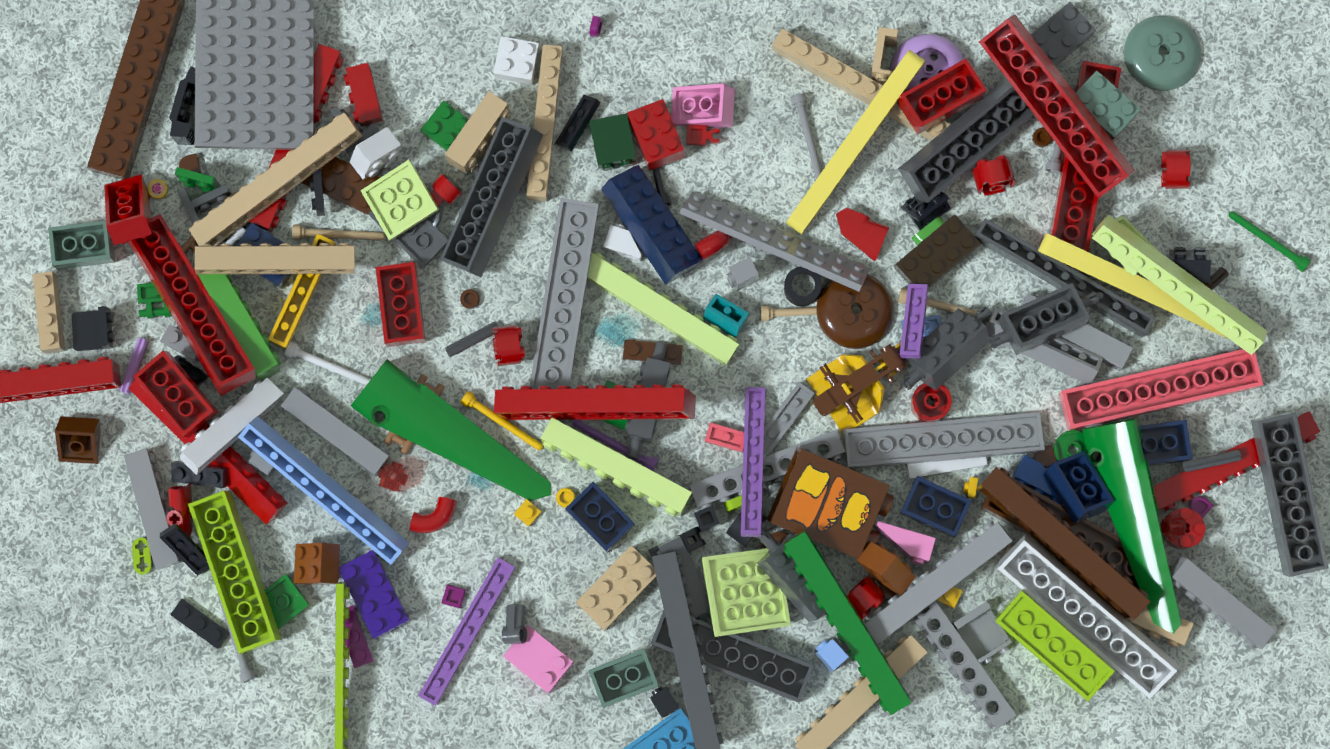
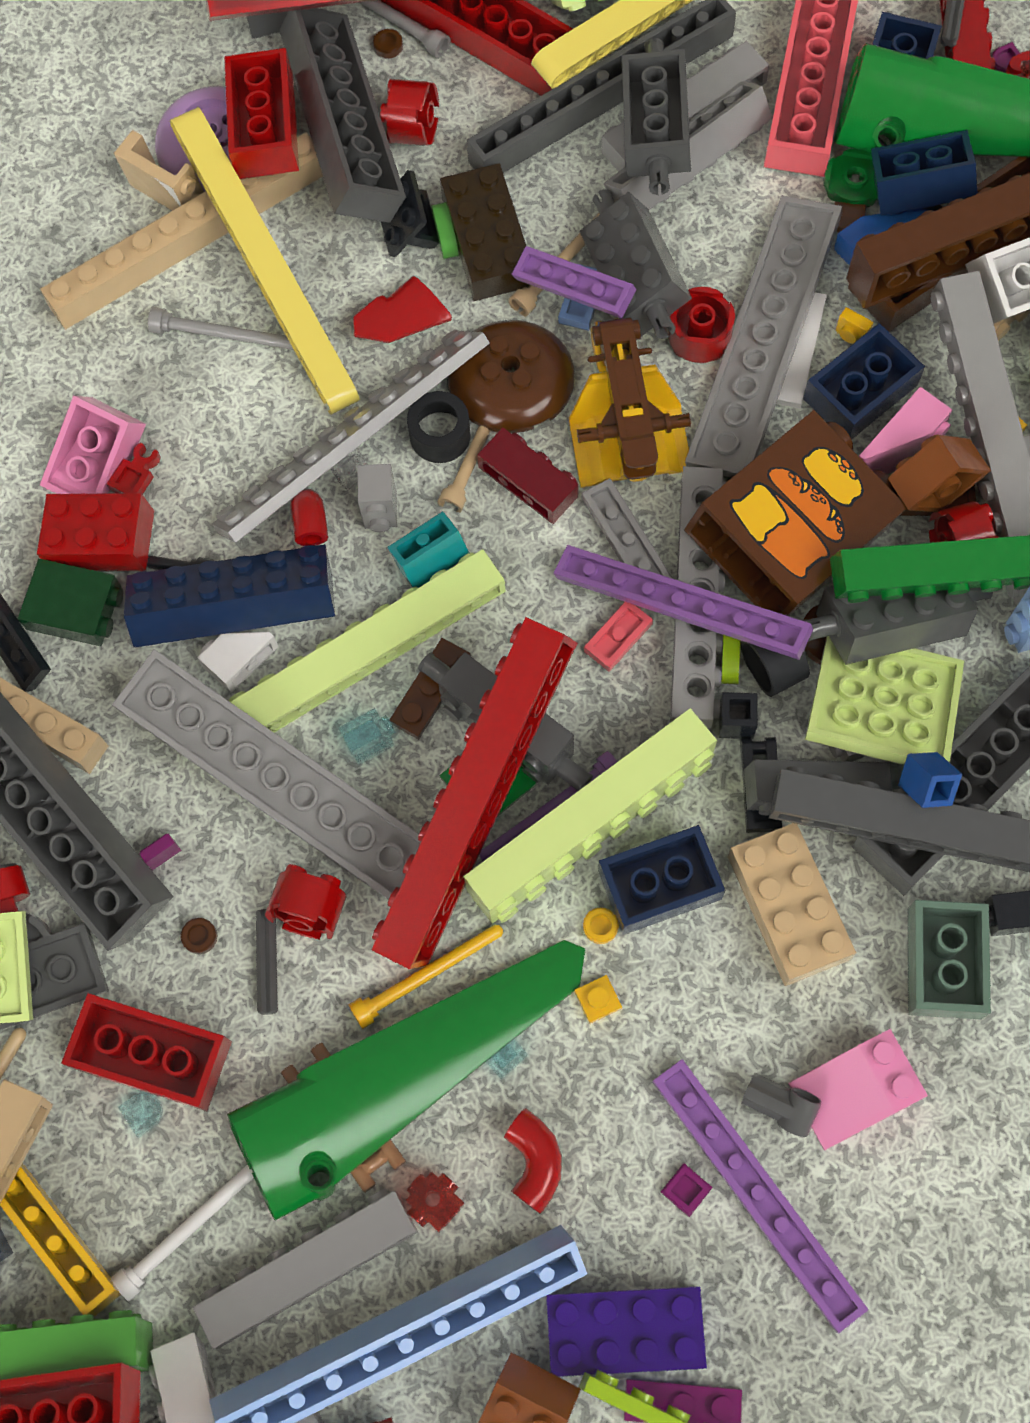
camera: 65 degrees left, 10 degrees down
(502, 258) = (160, 851): none -> magenta tile
(702, 627) = (930, 779): none -> blue brick
(797, 348) = (528, 475): none -> dark red brick

